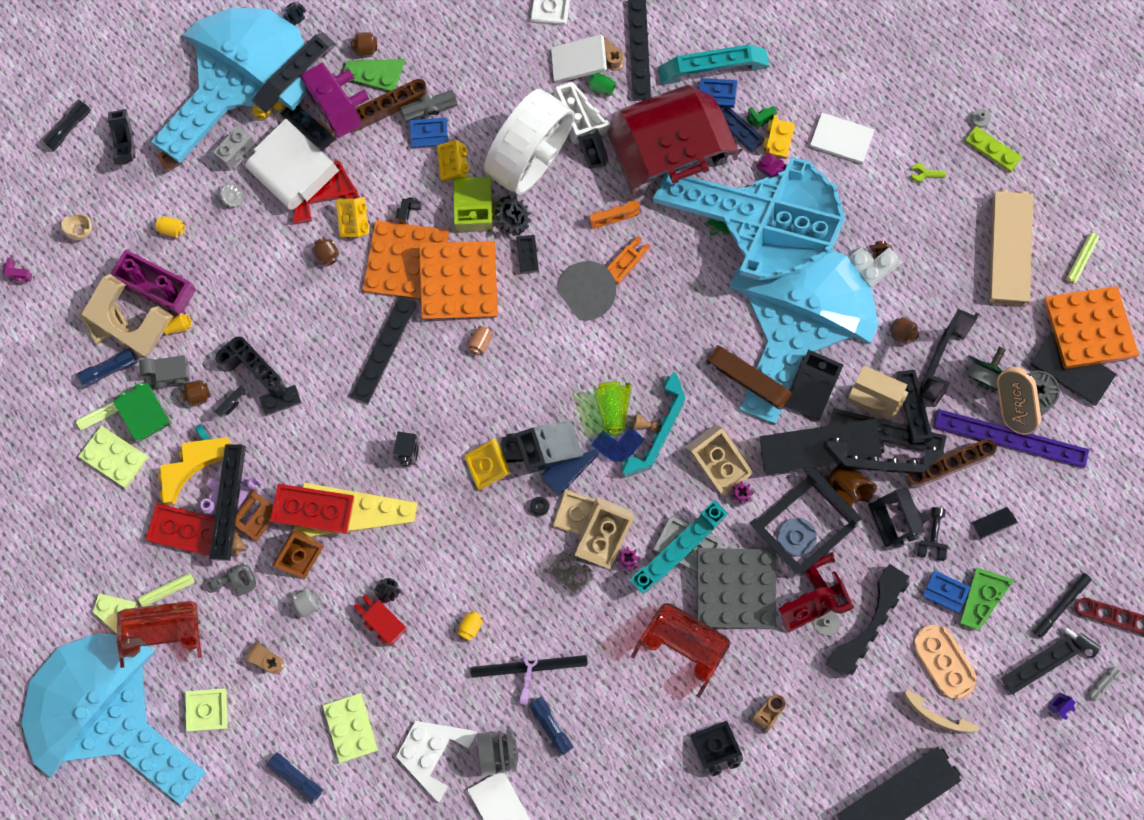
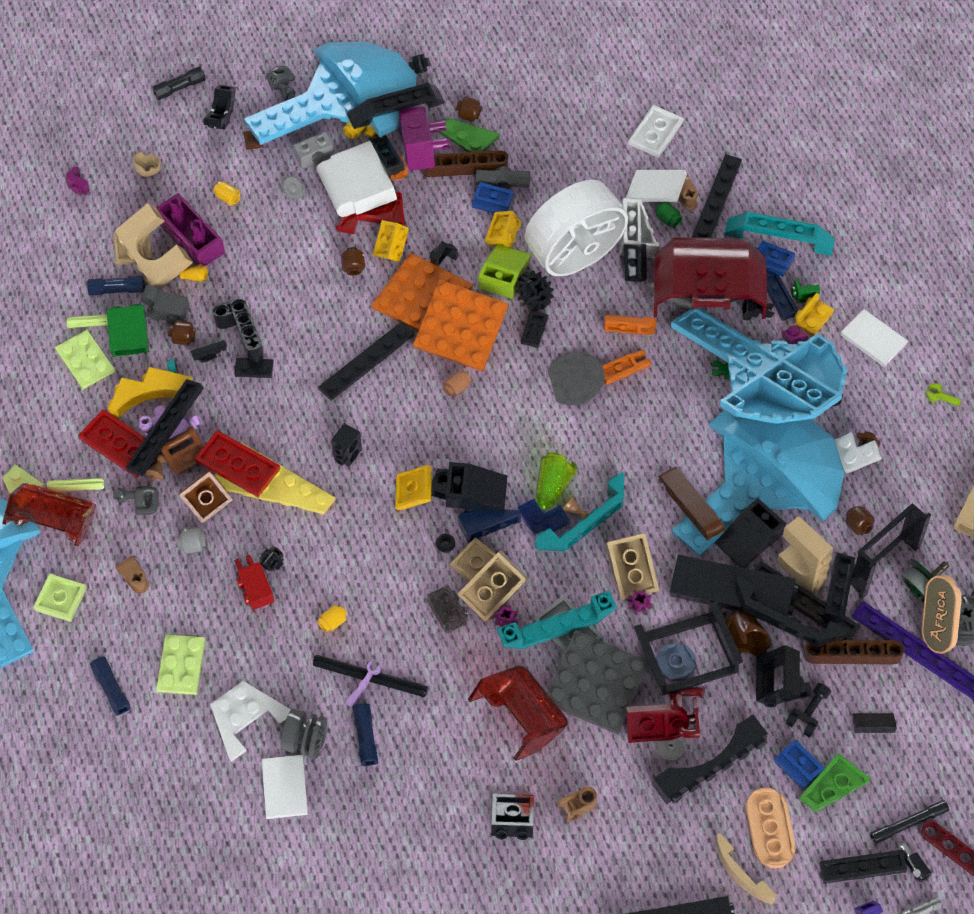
camera: 20 degrees right, 15 degrees down
(165, 84) = (279, 78): none -> dark grey piece

